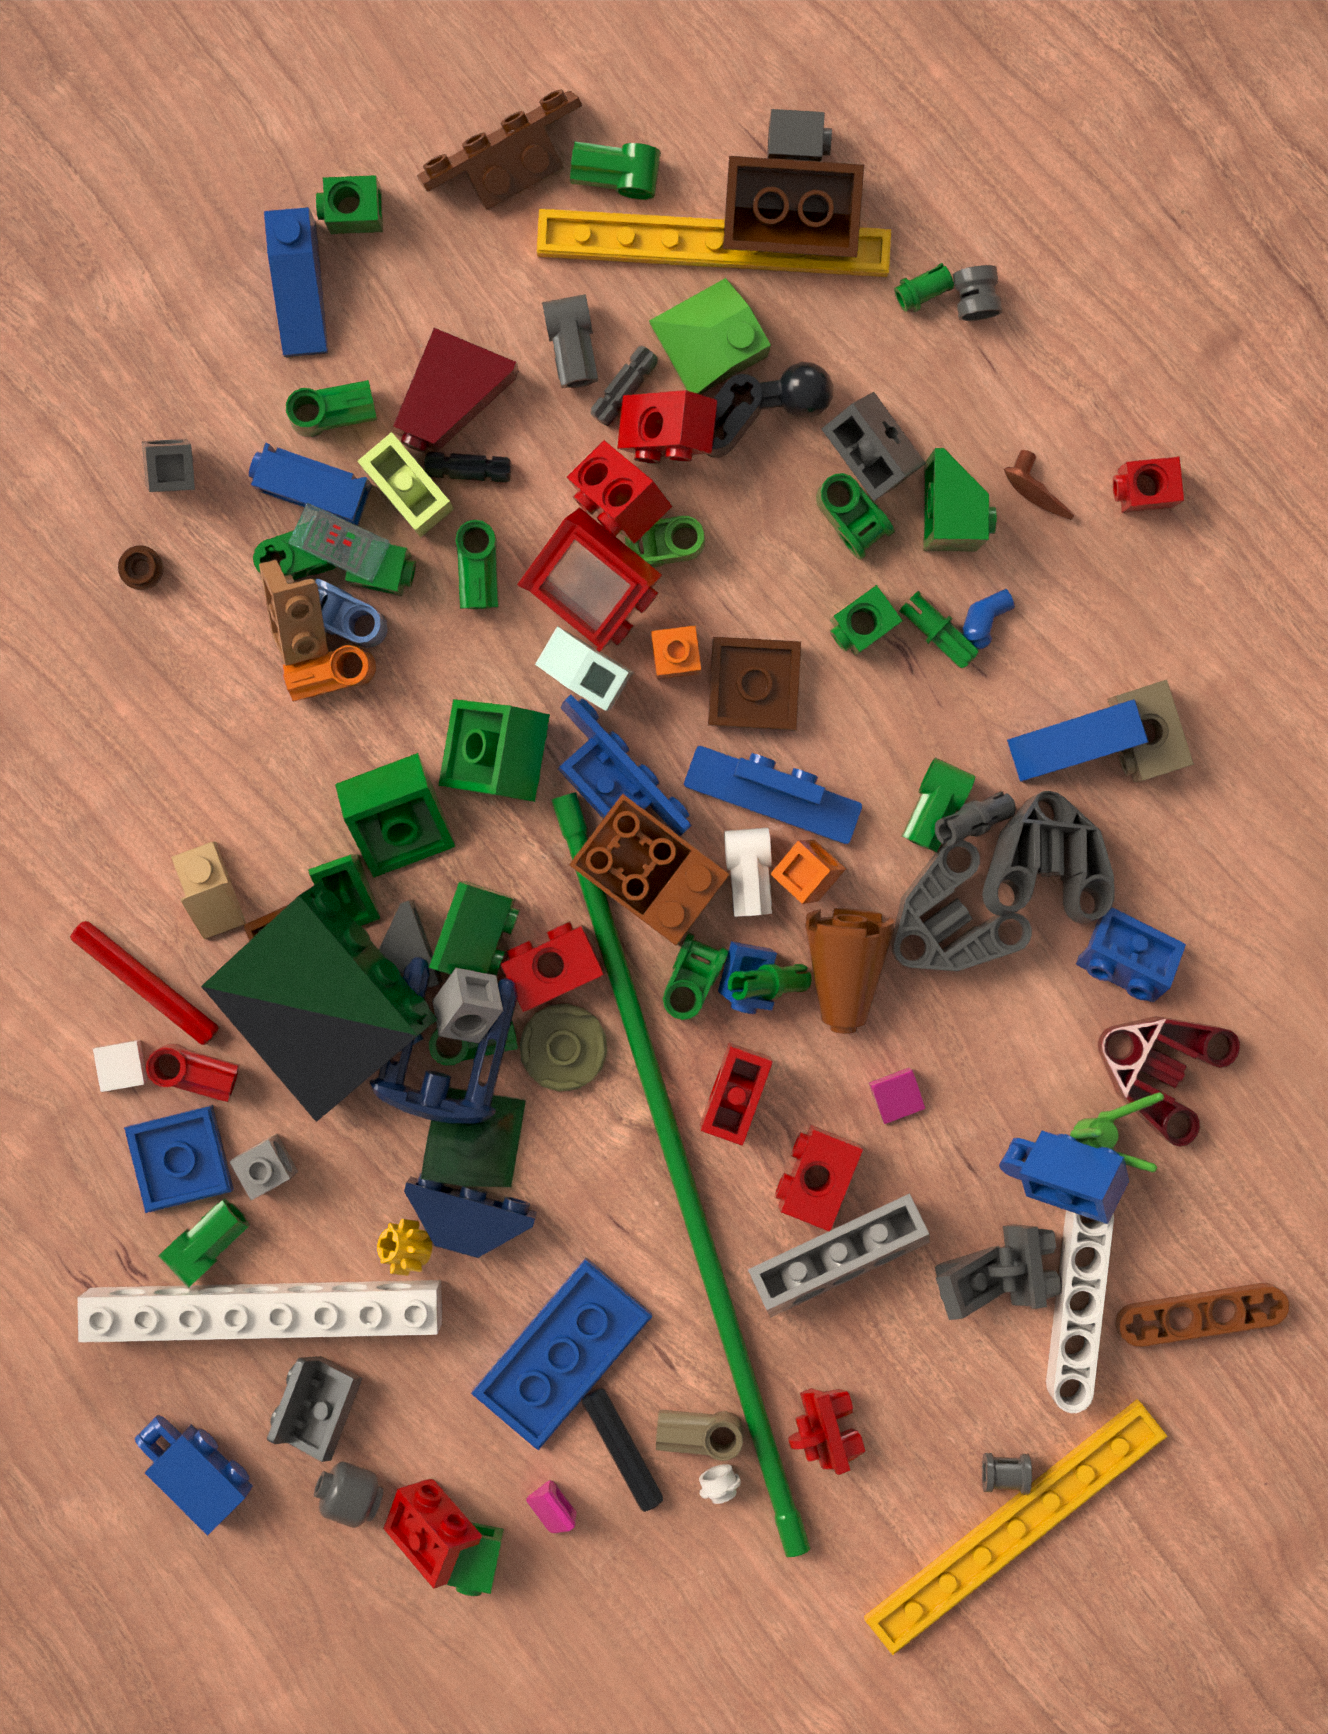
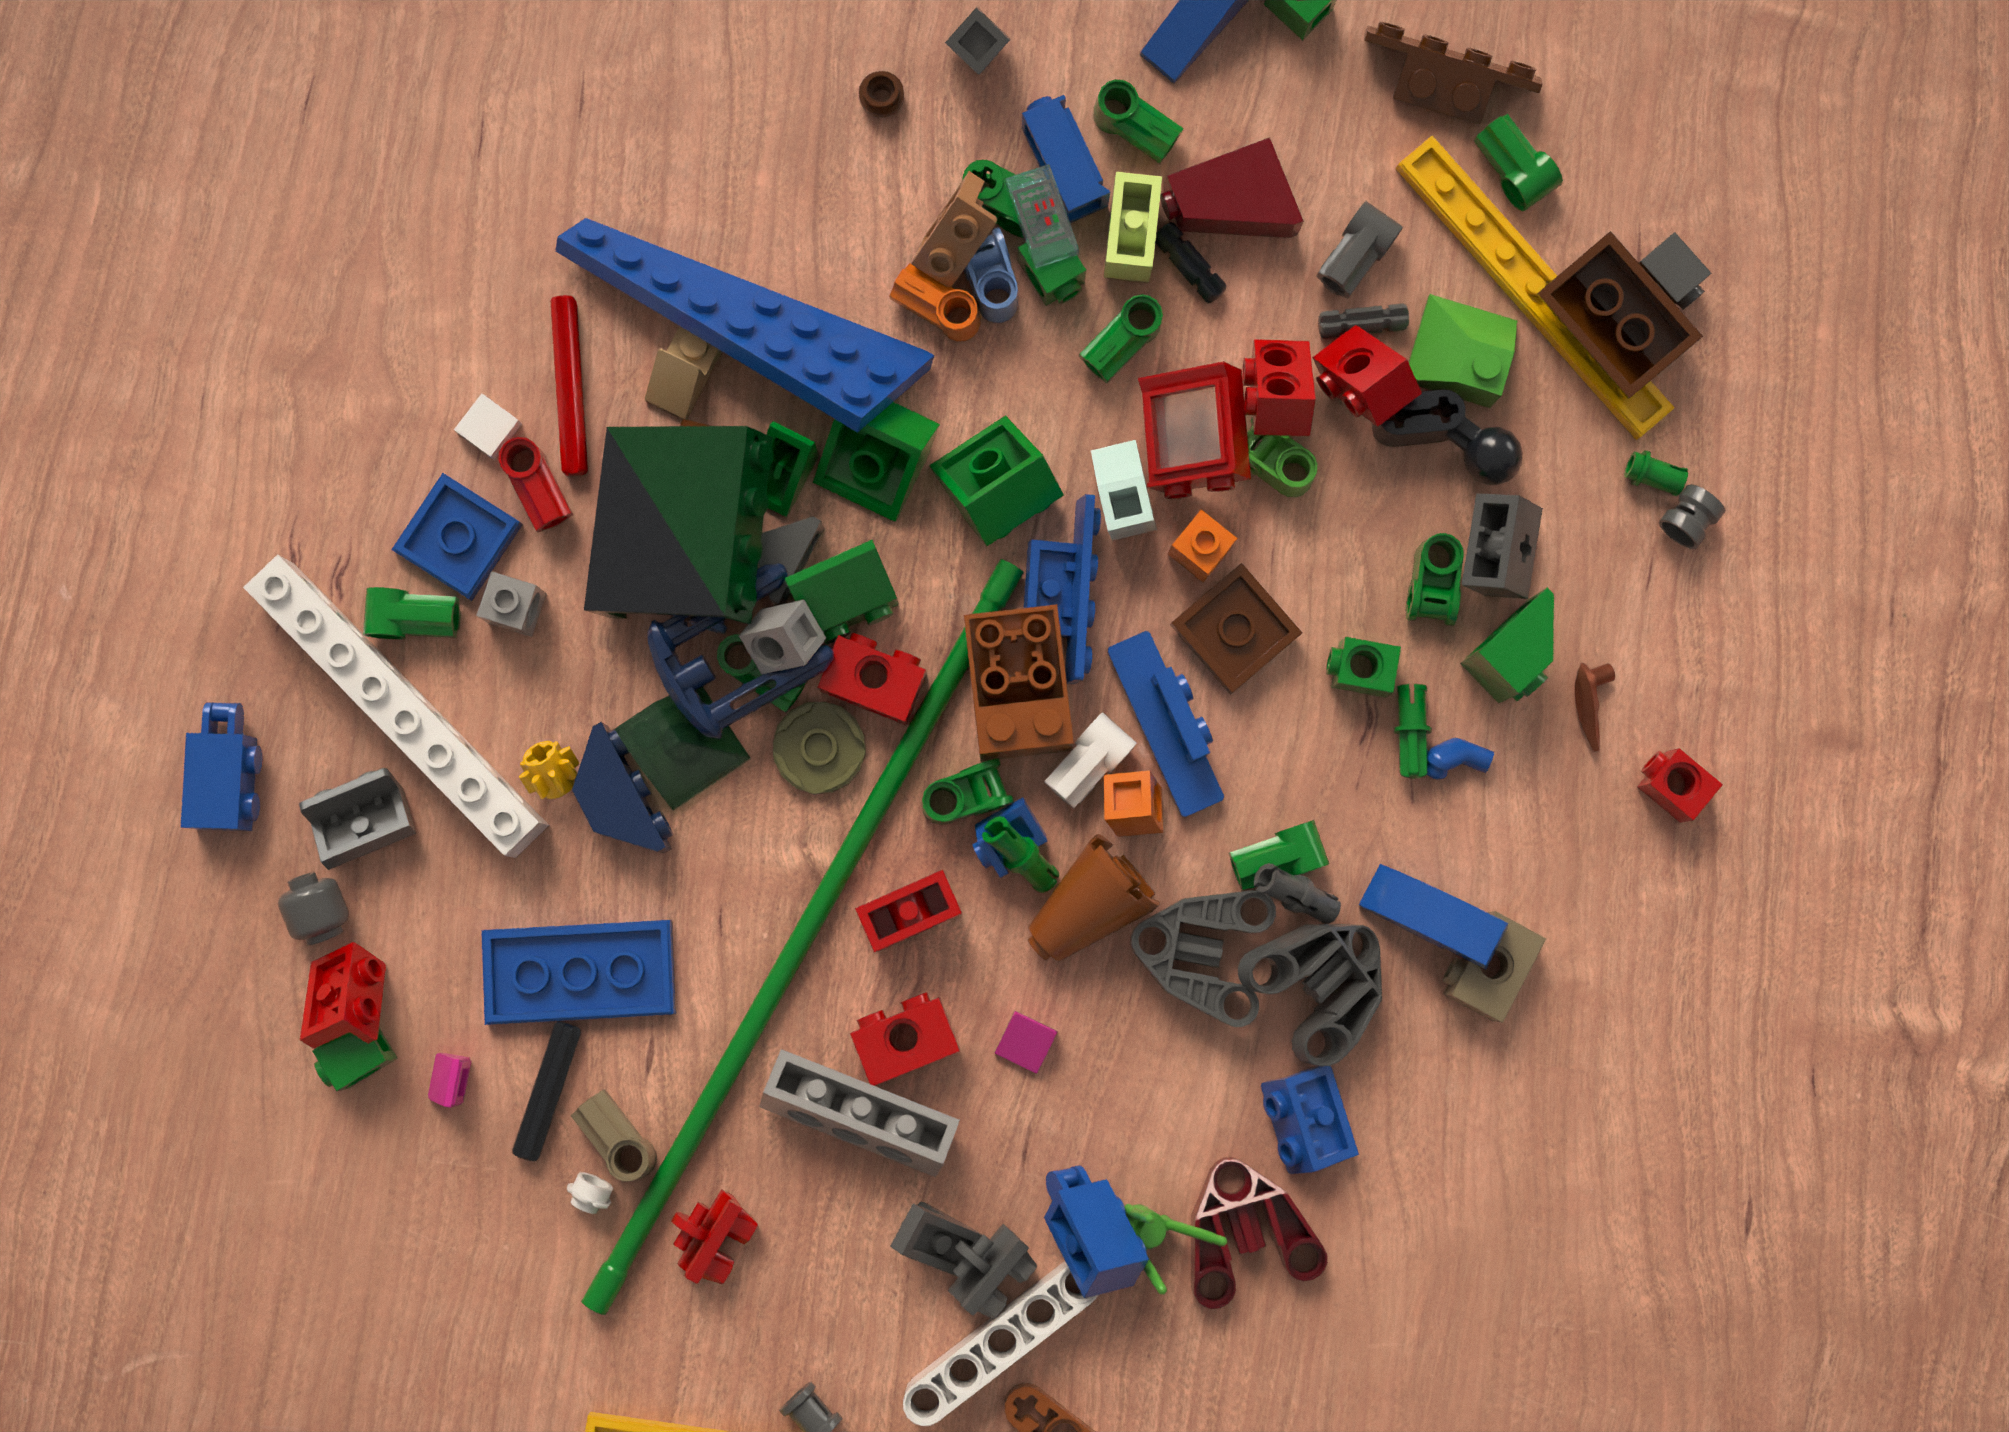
camera: 45 degrees right, 5 degrees down
(272, 799) = (801, 348): none -> blue wing

